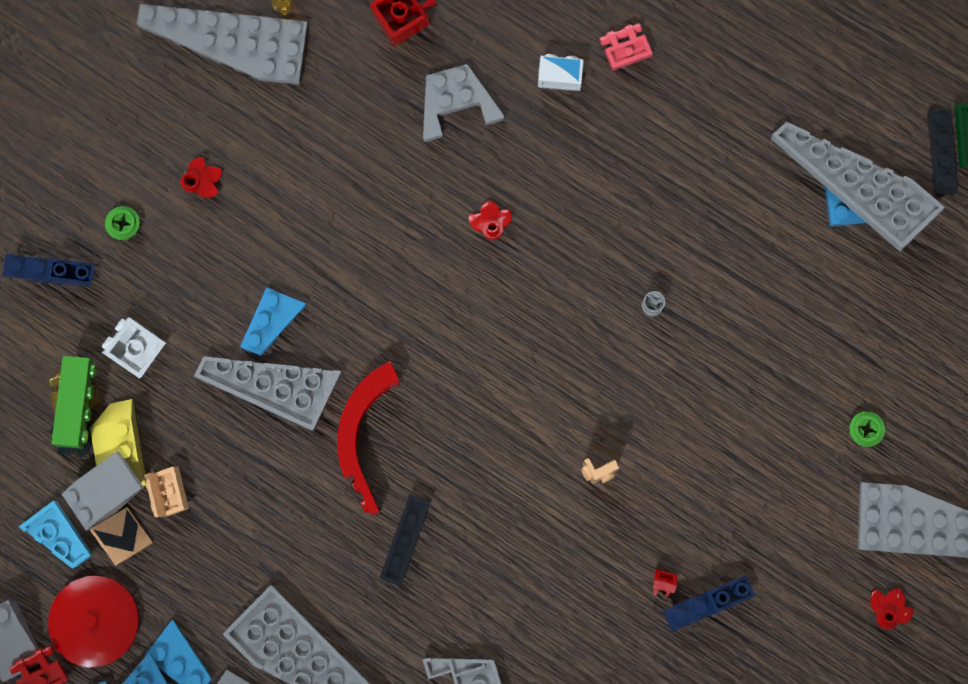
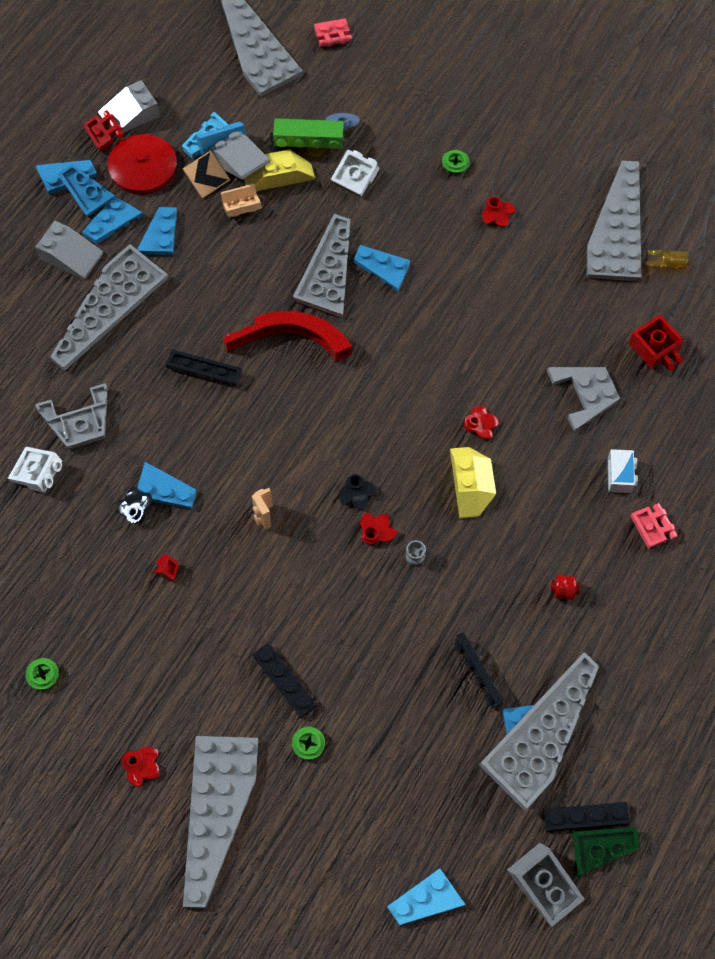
camera: 85 degrees right, 15 degrees down
(48, 271) = (412, 114): dark blue slope -> none
(48, 359) = (349, 120): none -> sand blue dish
(71, 522) = (208, 140): none -> dark azure wing
(204, 595) = (160, 234): none -> dark azure wing
(562, 588) = (165, 488): none -> dark azure wing
(563, 236) = (472, 481): none -> light yellow wedge
(577, 365) = (358, 494): none -> black plate
(581, 621) = (134, 503): none -> black plate
(617, 343) = (378, 527): none -> red plate
(698, 147) = (565, 587): none -> red piece
(708, 603) = (147, 603): dark blue slope -> none
(783, 250) = (481, 678): none -> black plate
(795, 453) = (284, 680): none -> black plate

